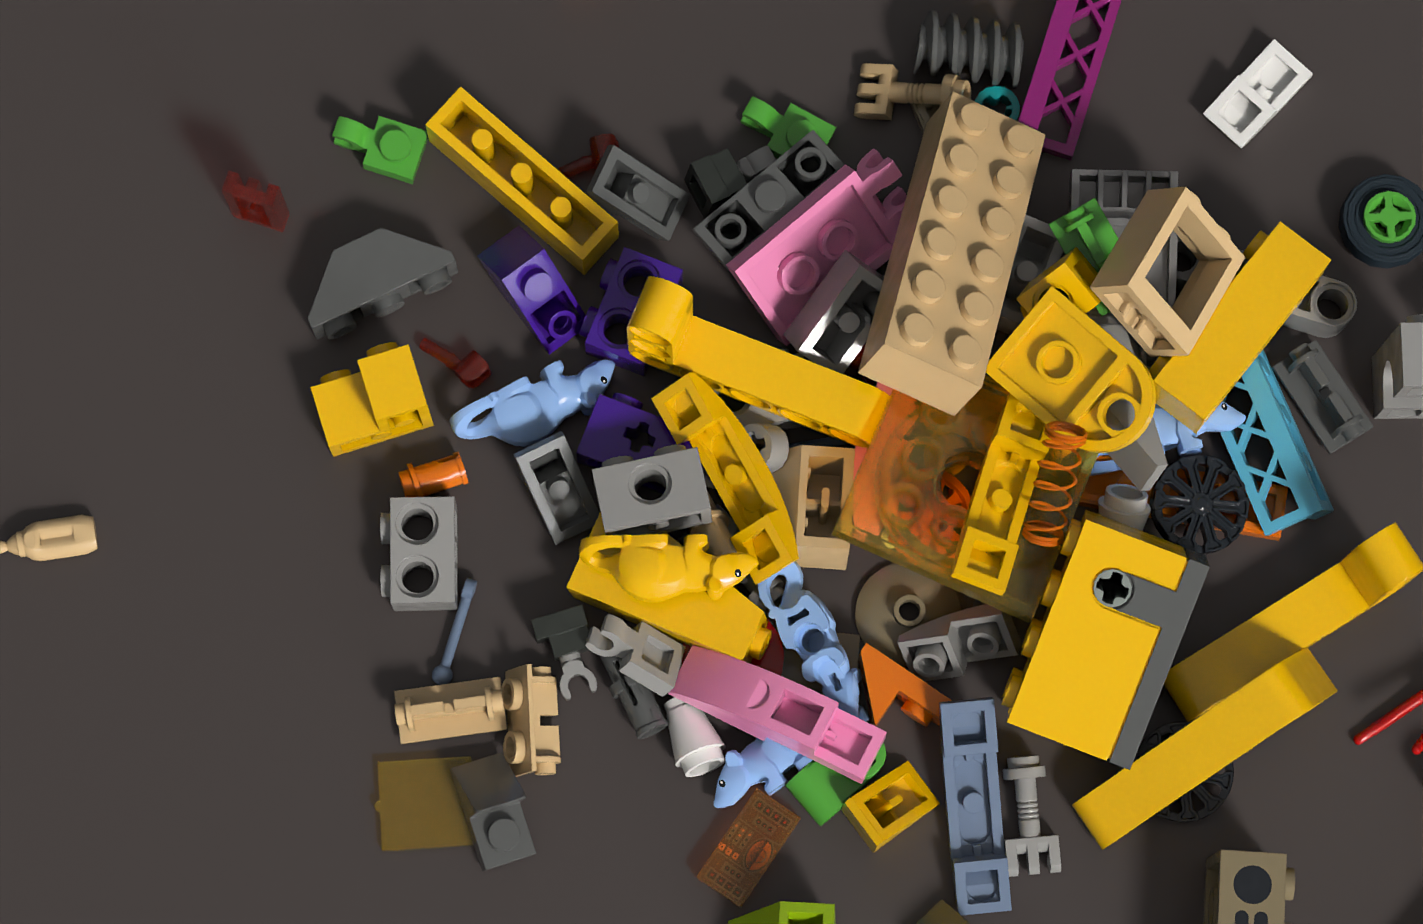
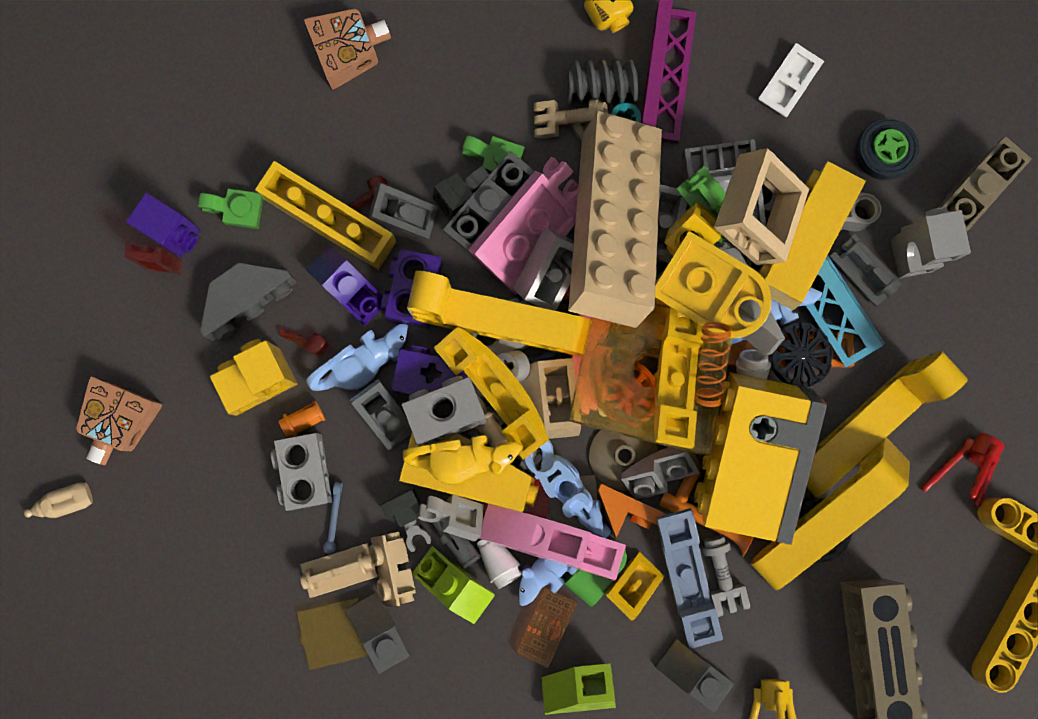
camera: 10 degrees left, 5 degrees up
(155, 427) = (113, 418): none -> nougat torso
(281, 155) = (164, 225): none -> dark purple brick
(619, 758) = (453, 586): none -> lime slope
(1063, 759) = (679, 503): none -> orange piece

